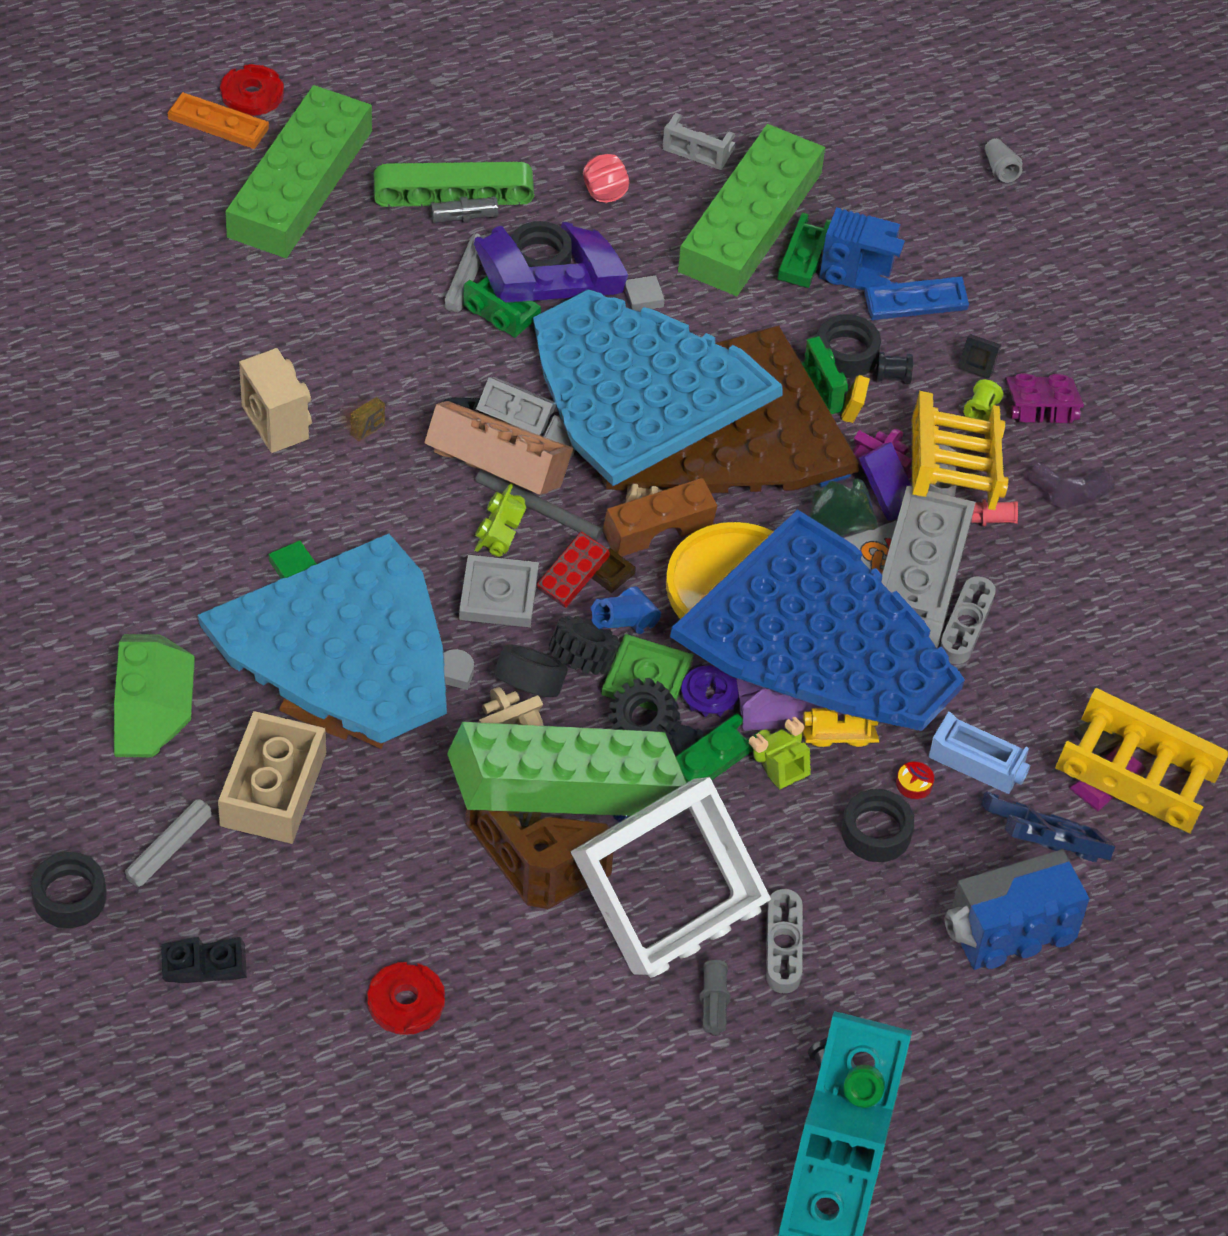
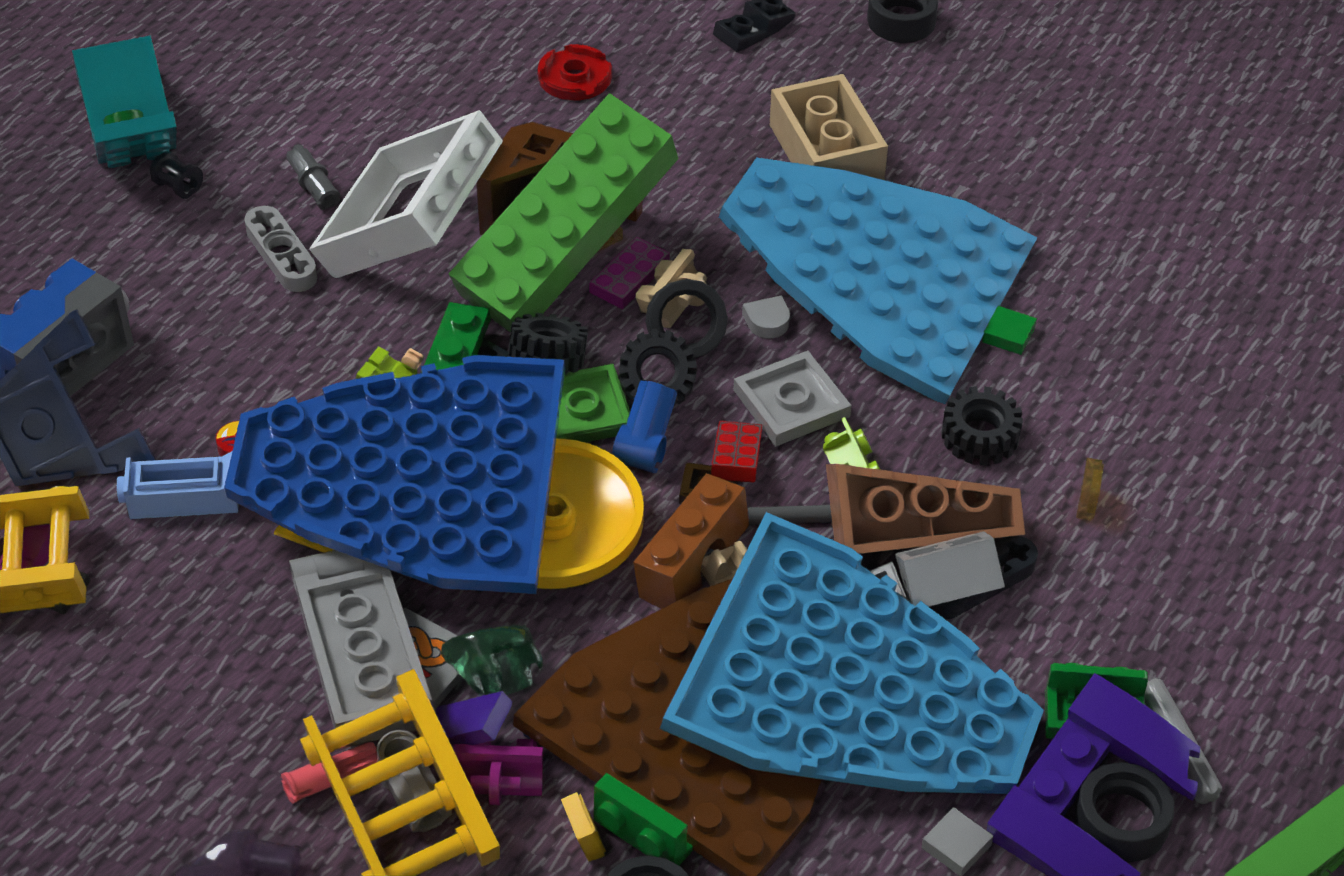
camera: 150 degrees right, 5 degrees down
(151, 694) = (1014, 164): bright green wedge -> none
(168, 843) = (867, 74): light grey axle -> none
(275, 399) = (1188, 430): tan brick -> none
(389, 484) = (986, 408): none -> black tyre
(464, 209) = (1270, 820): dark grey pin -> none
(877, 849) = (243, 351): black tyre -> none
(965, 607) = (267, 620): light grey beam -> none

